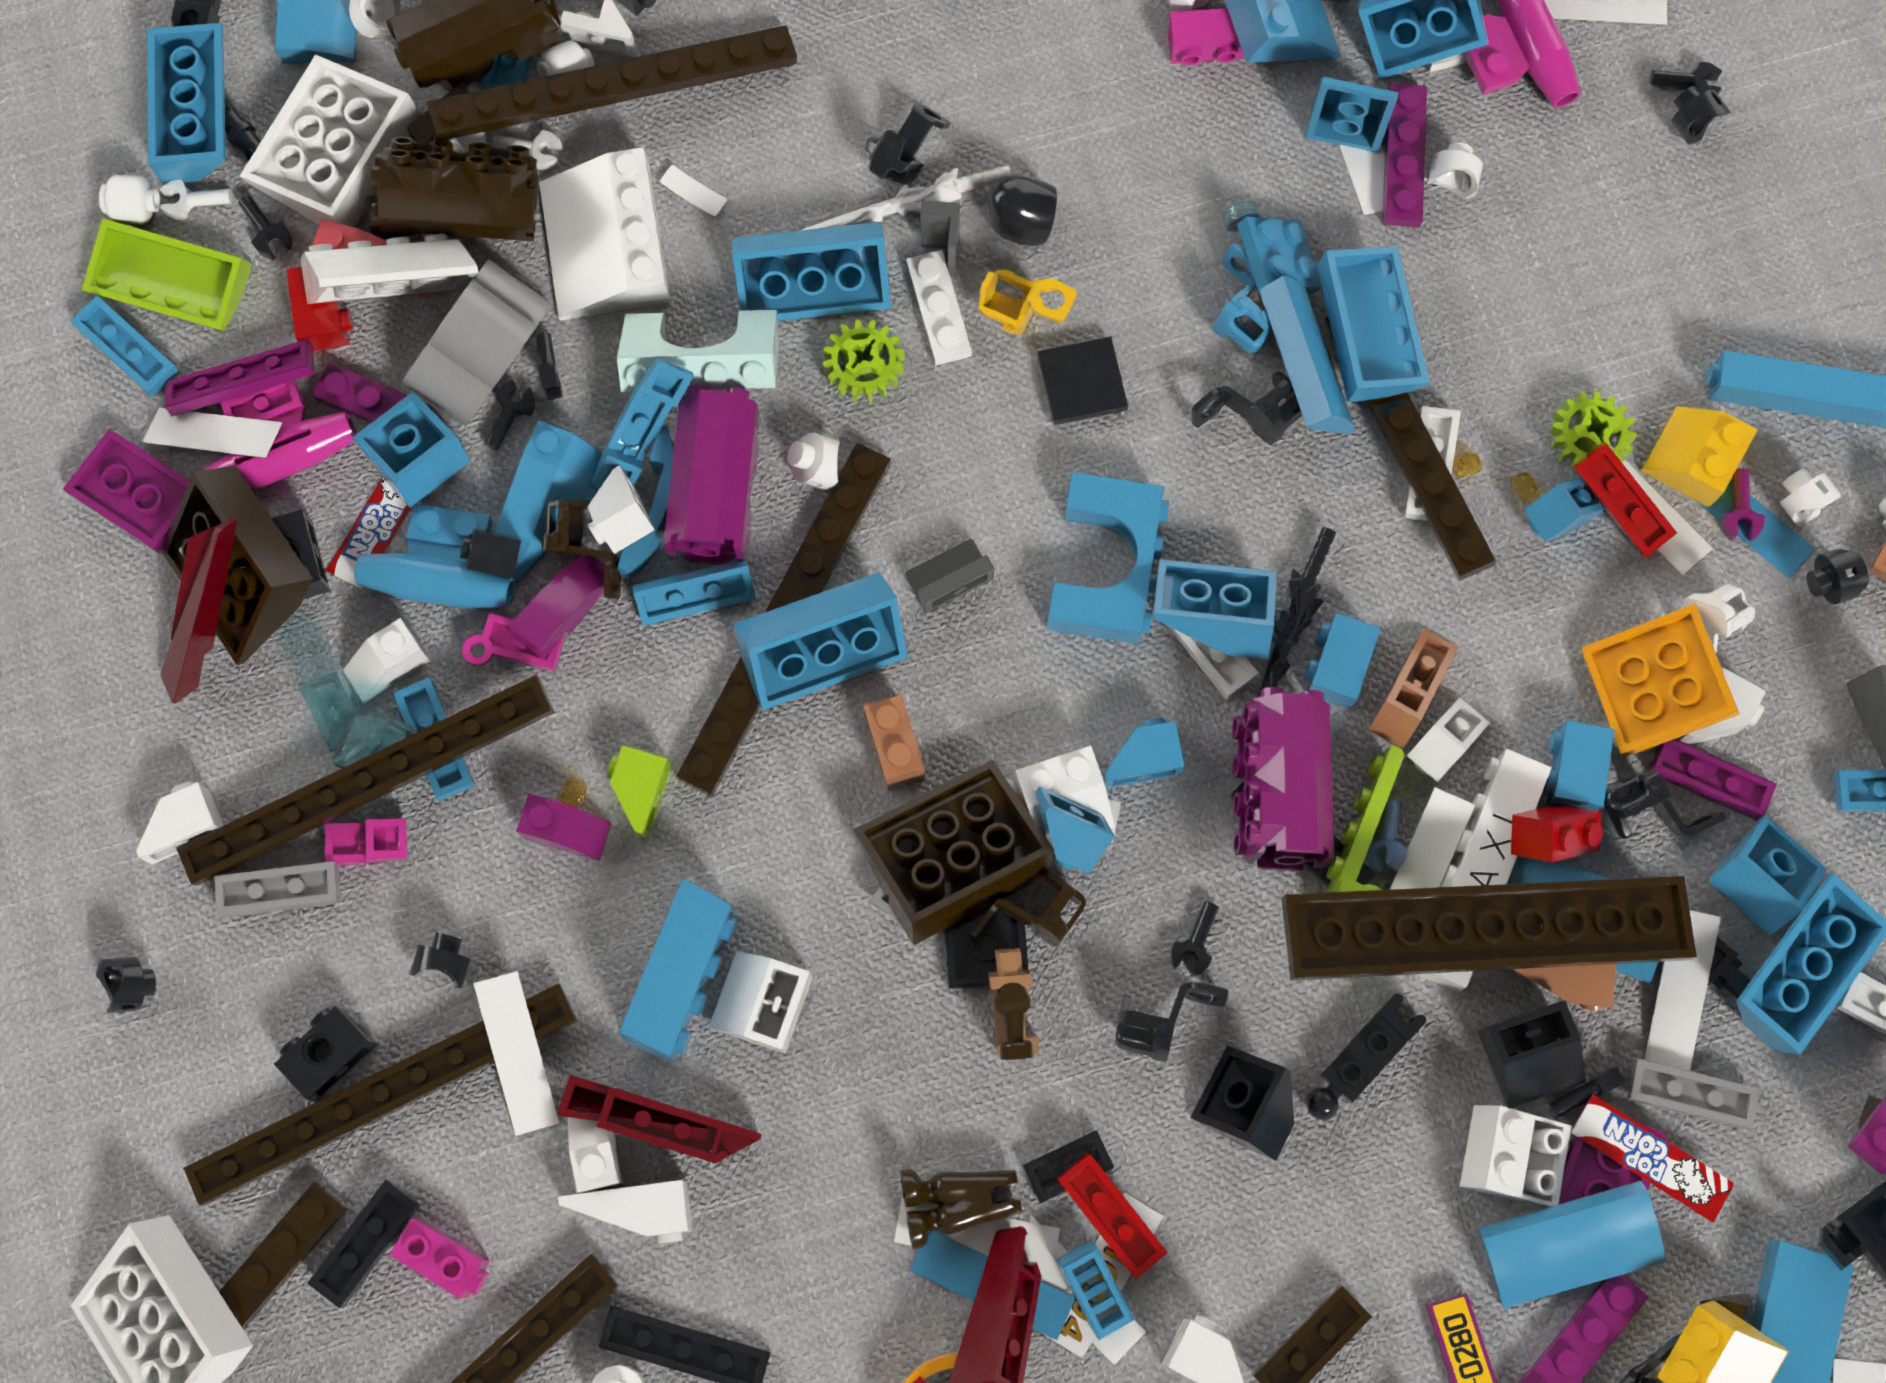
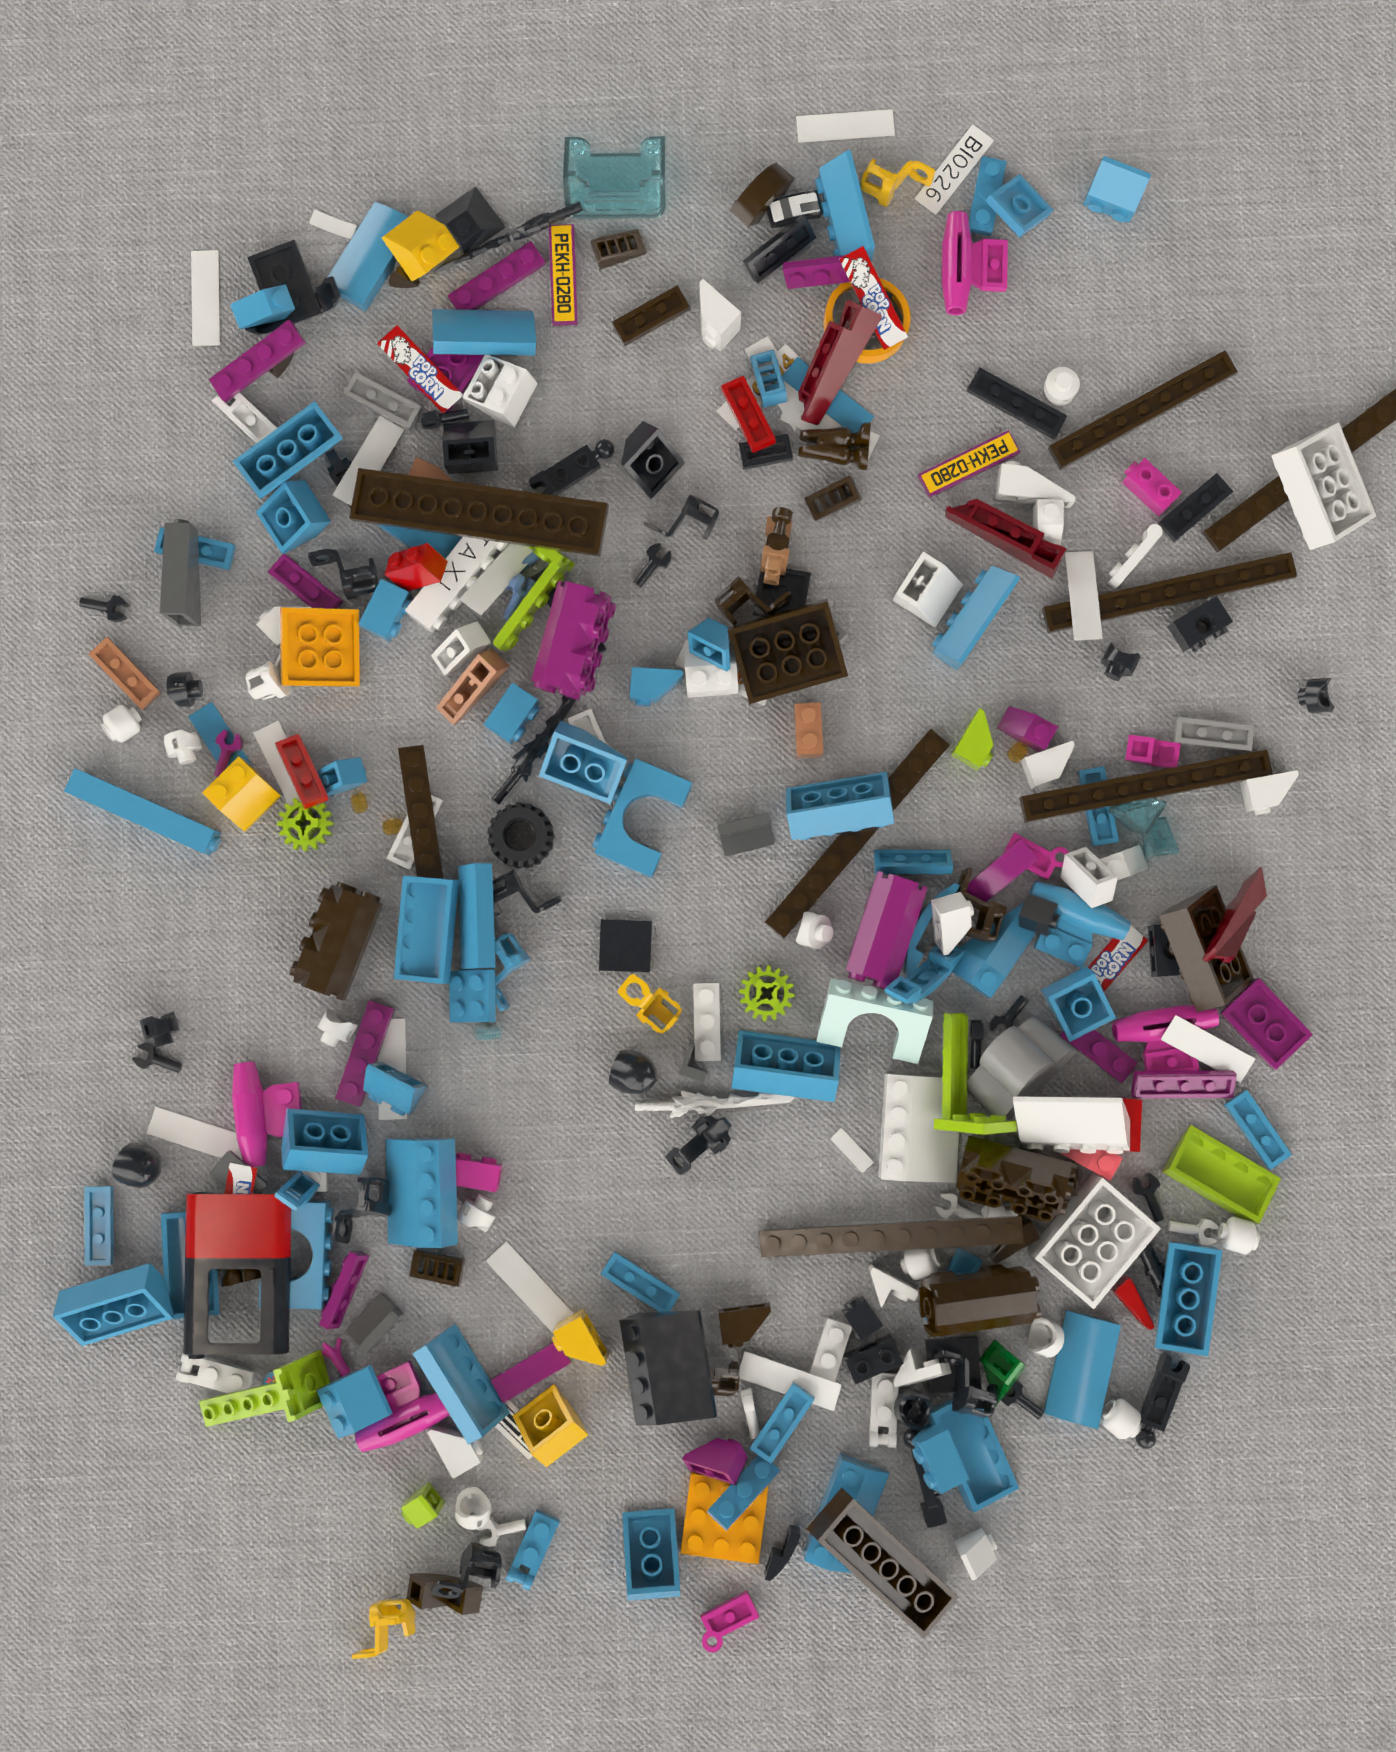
camera: 165 degrees left, 10 degrees up
(266, 85) = (1127, 1293): none -> red slope
(428, 621) = (1088, 877): none -> white brick
(446, 1138) = (1134, 555): none -> white plate
(518, 773) = (1046, 766): none -> white slope
(549, 247) = (955, 1085): none -> lime bracket
(740, 1227) = (968, 464): none -> tile
(916, 1140) = (846, 502): none -> dark brown slope
(1282, 459) = (505, 819): none -> black tyre
(1493, 278) = (337, 941): none -> dark brown brick

